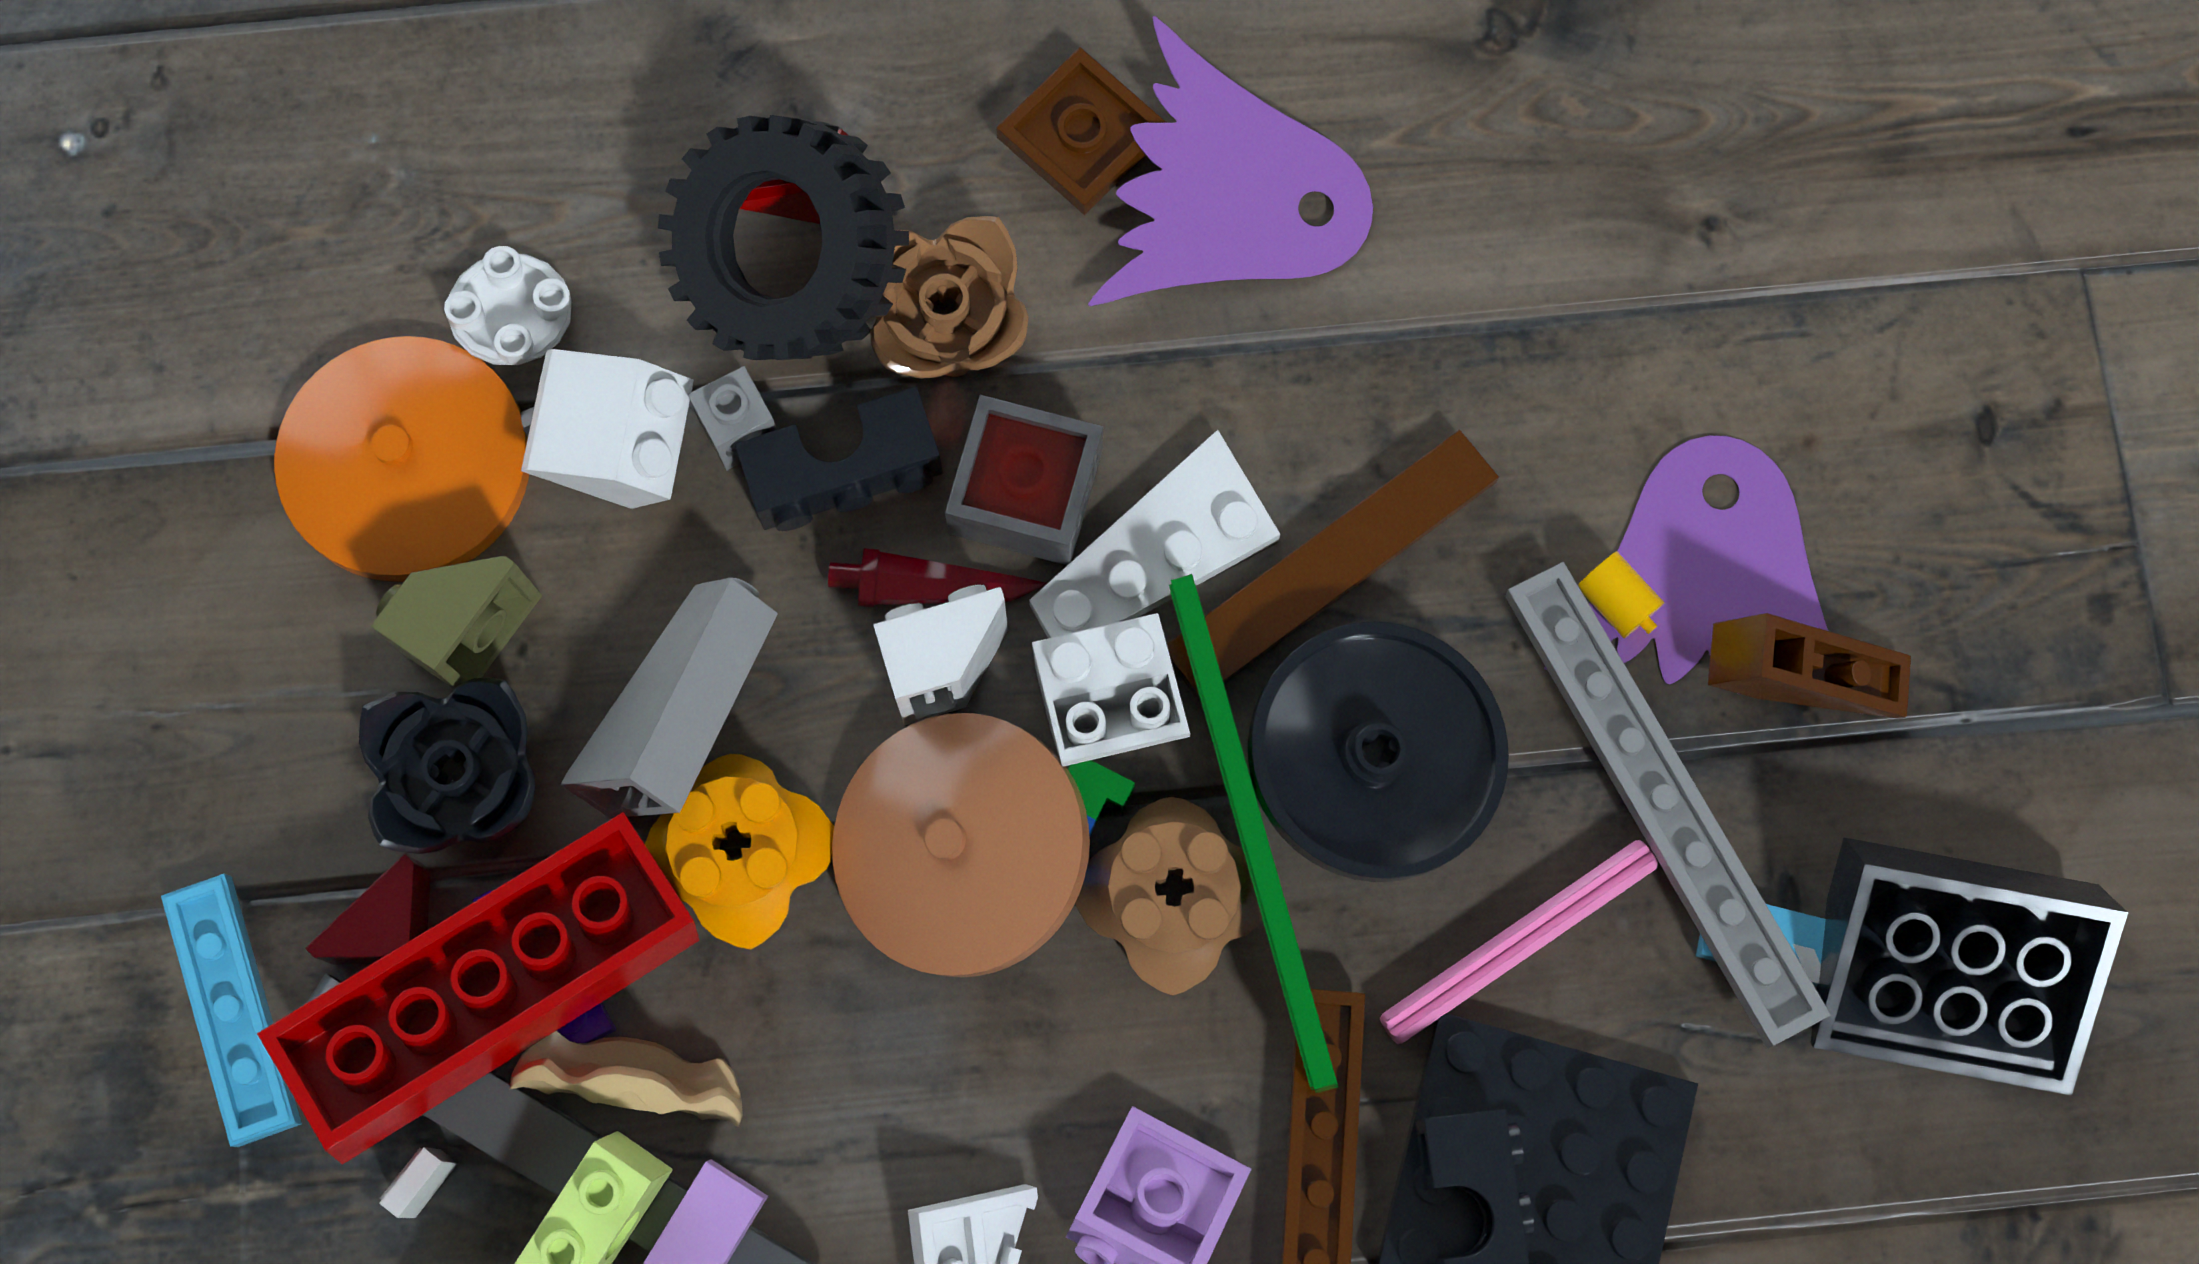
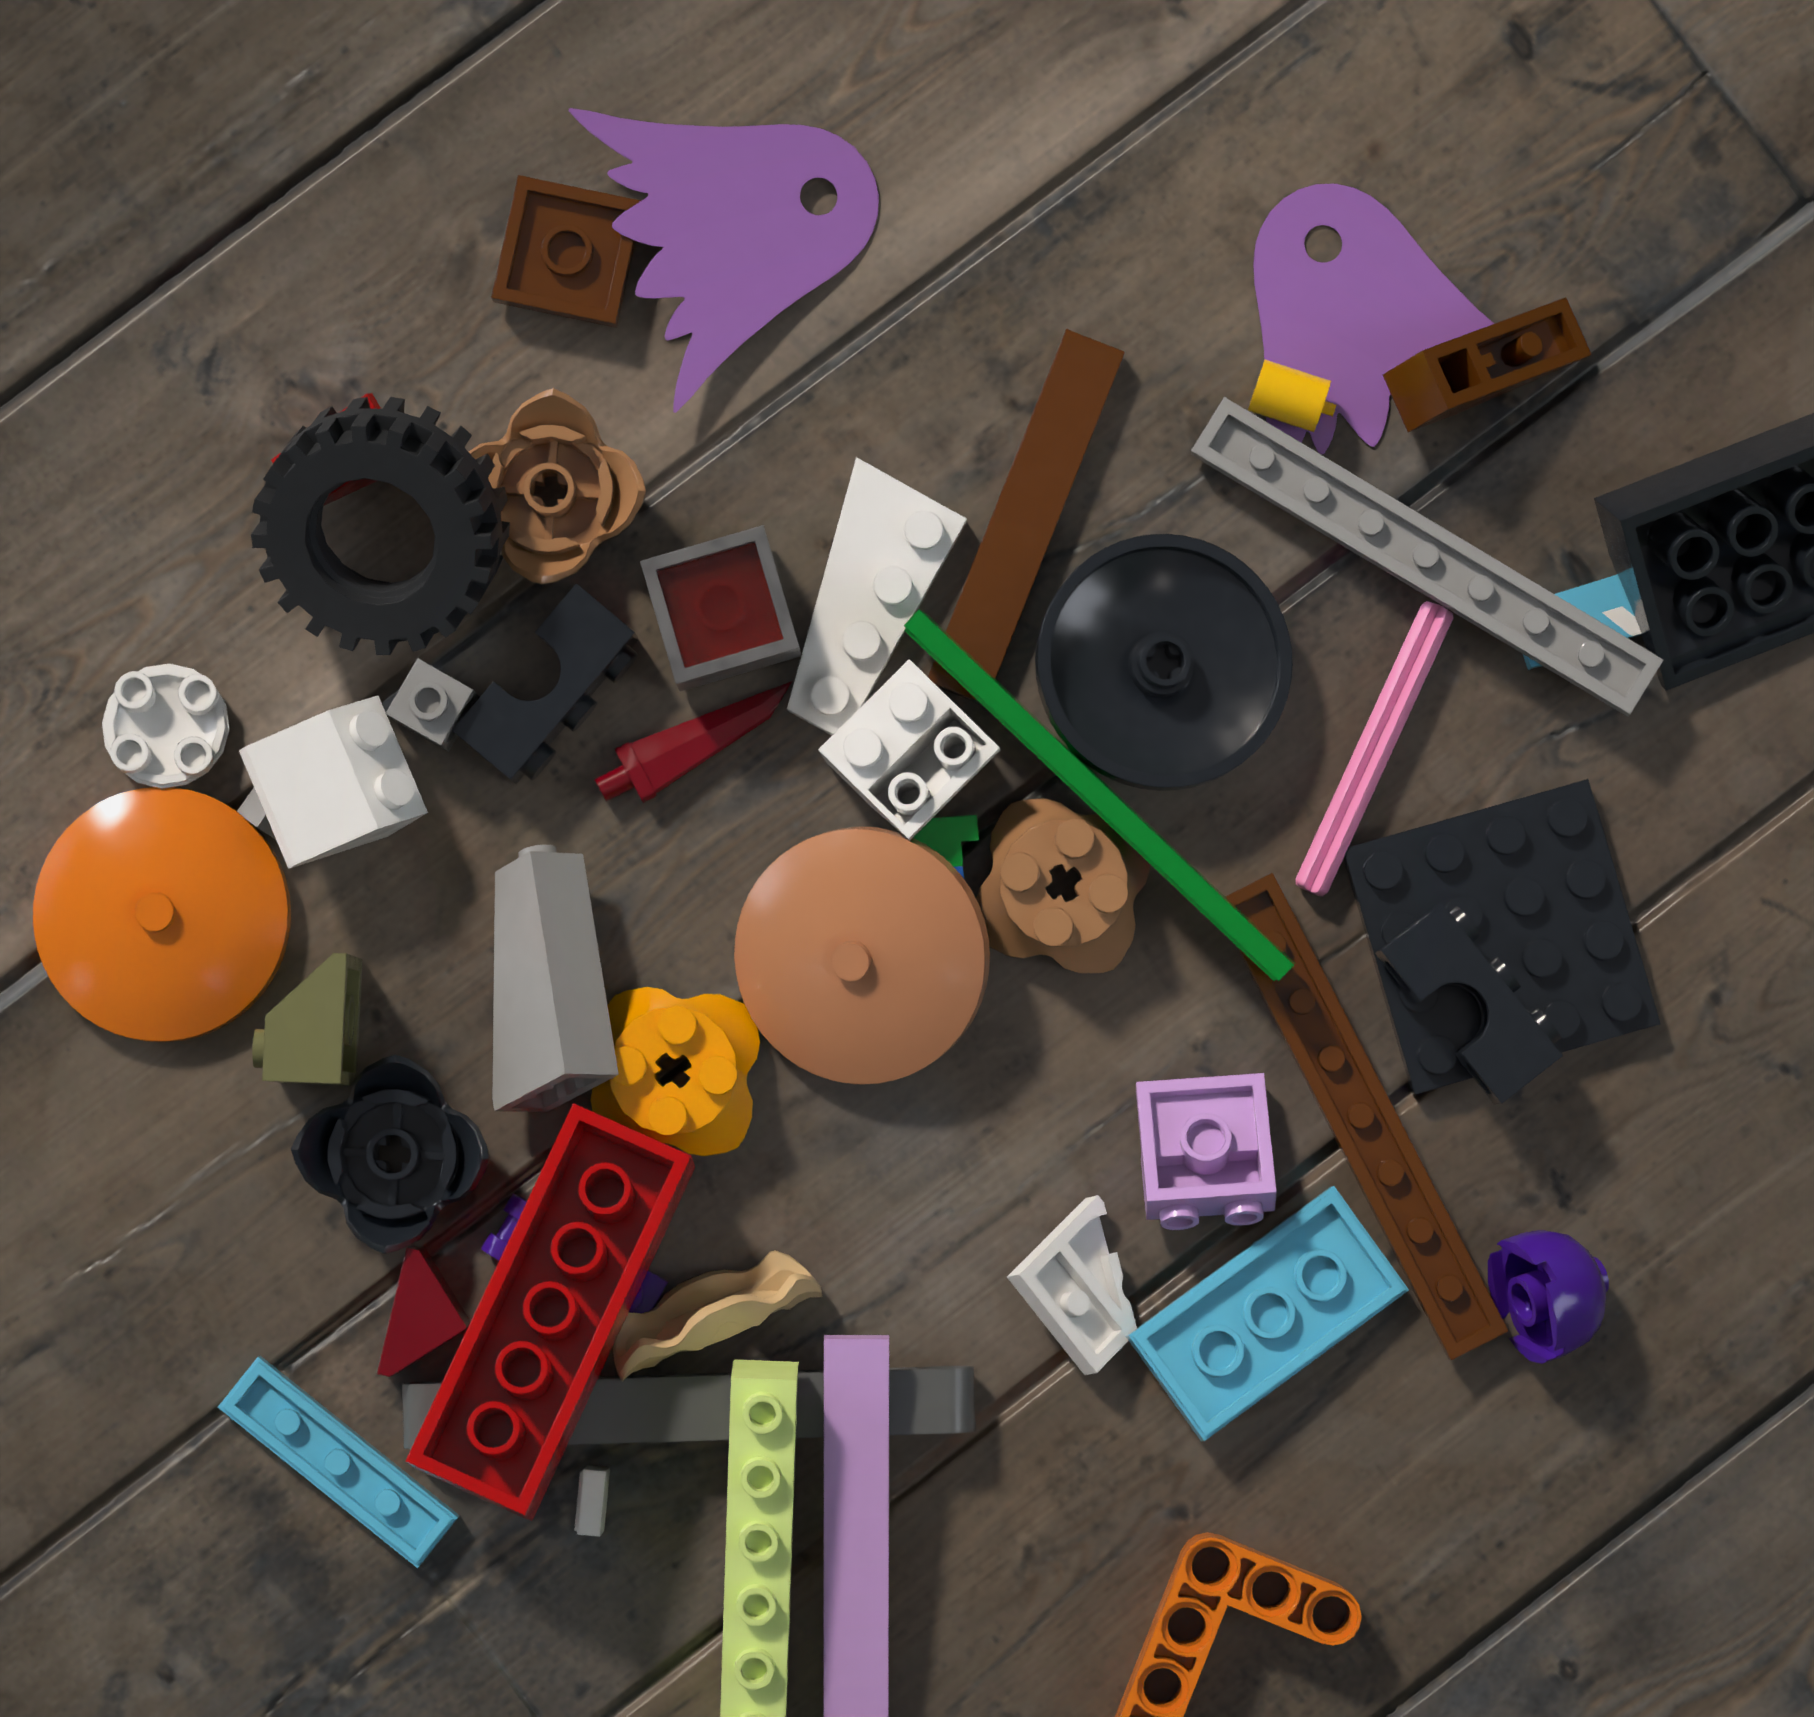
camera: 25 degrees left, 10 degrees up
(942, 650) = (746, 808): white slope -> none

